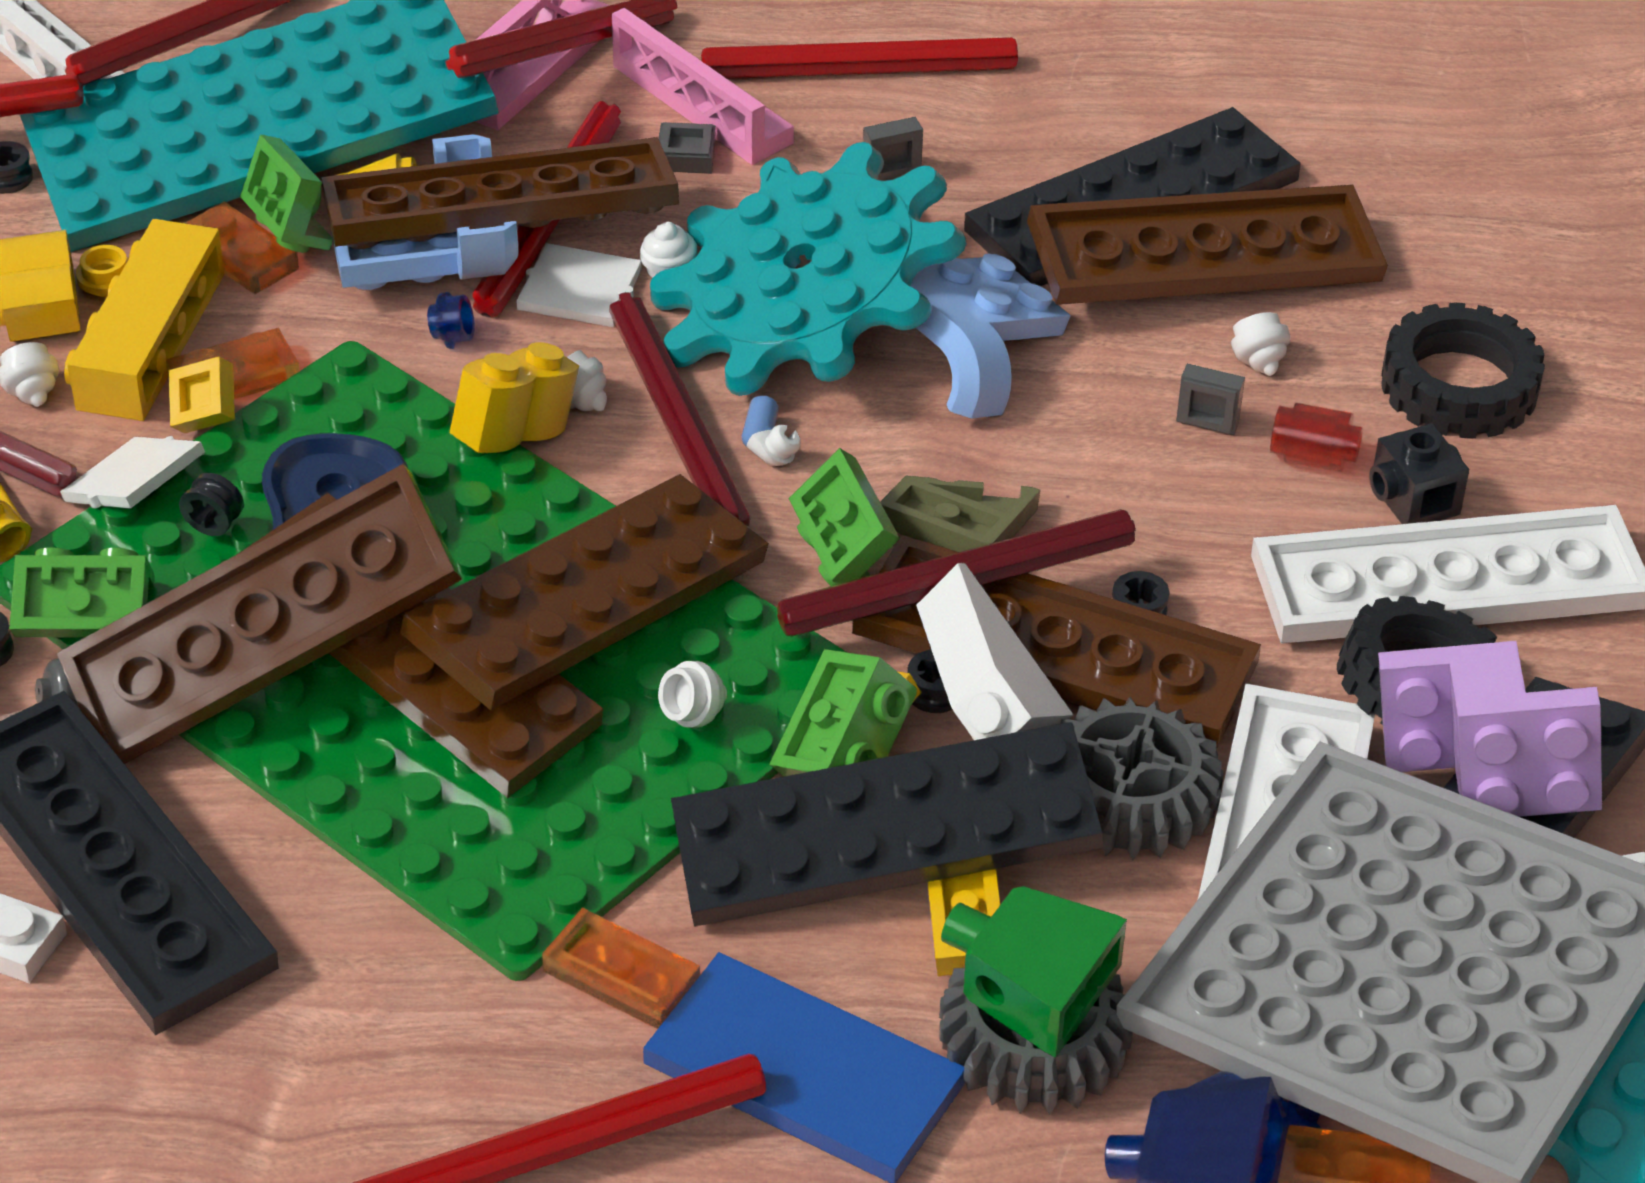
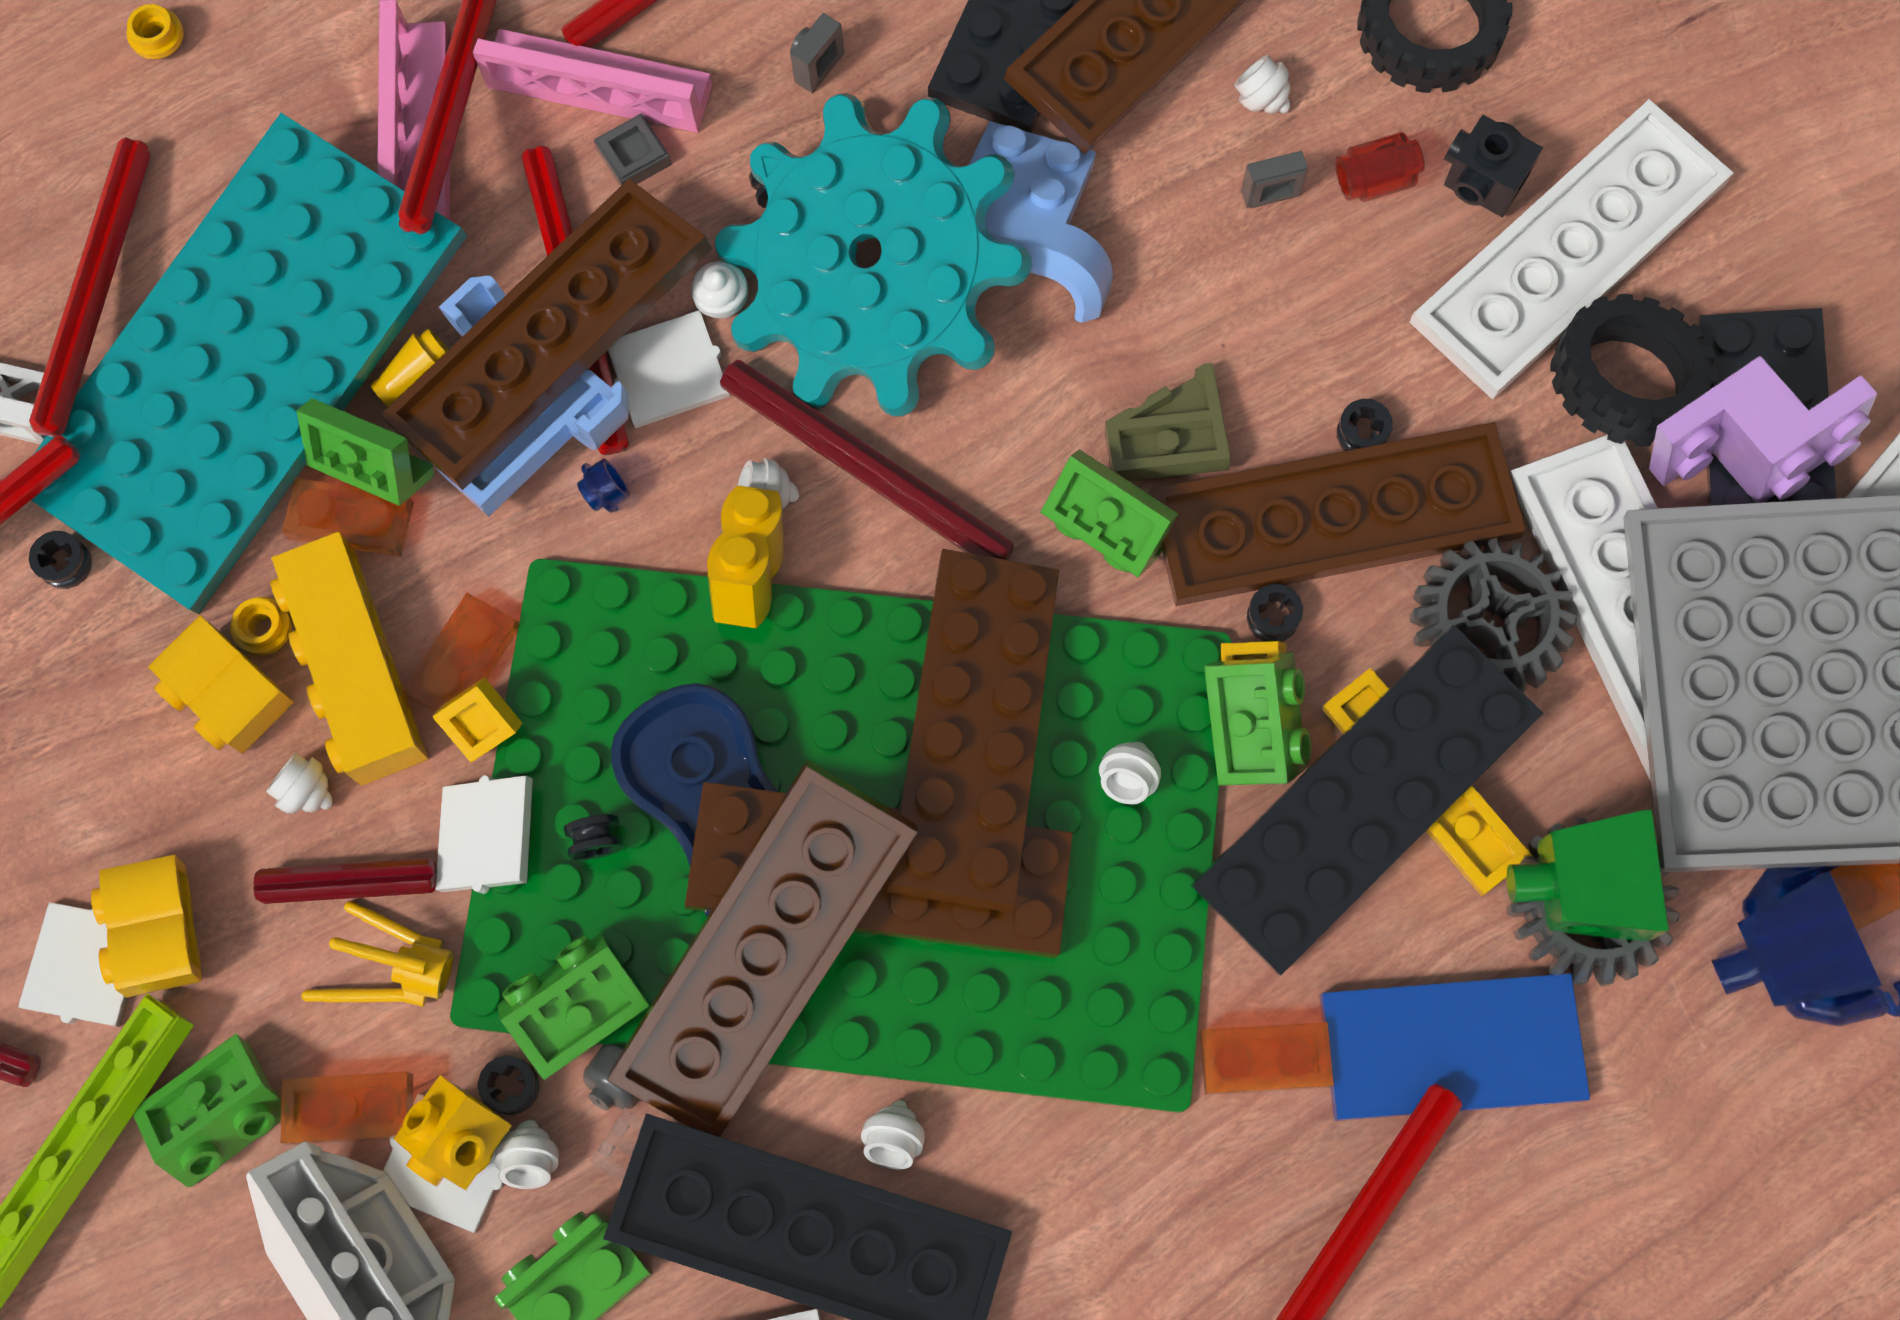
camera: 30 degrees left, 30 degrees up
(245, 838) = (893, 1137): none -> white plate
(764, 437) = (952, 447): arm -> none
(983, 662) = (1332, 598): white slope -> none
(987, 563) = (1231, 509): dark red axle -> none

